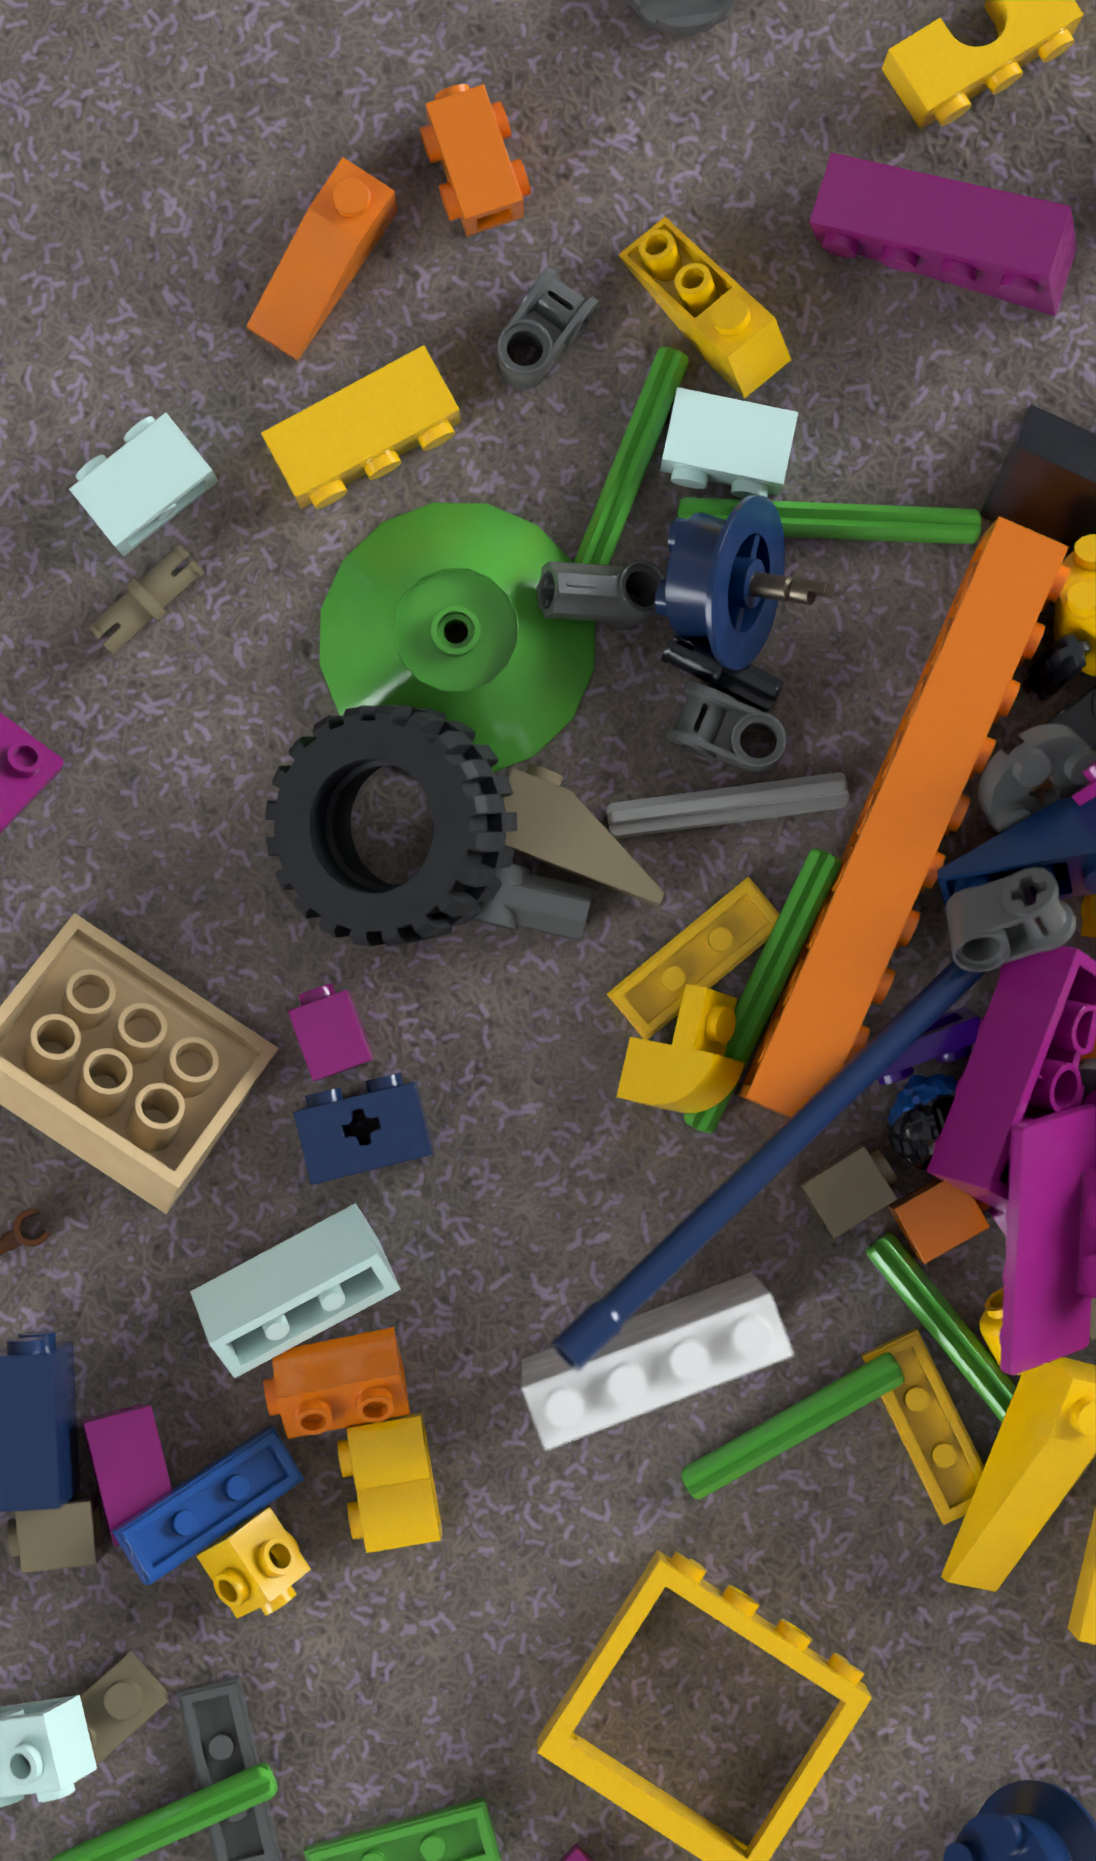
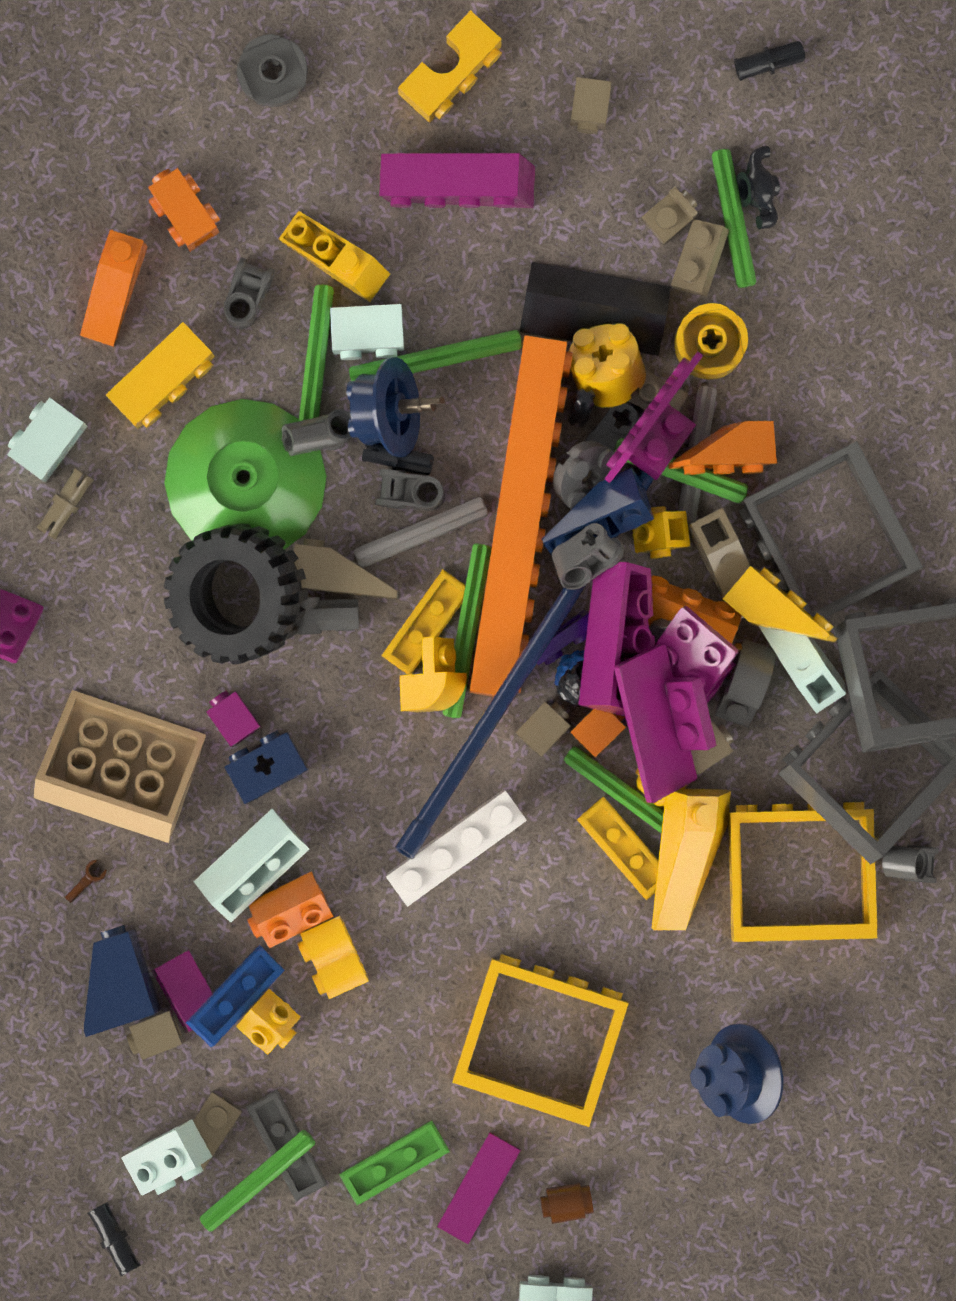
camera: 10 degrees left, 0 degrees up
(792, 1425) = (547, 867): bright green axle -> none

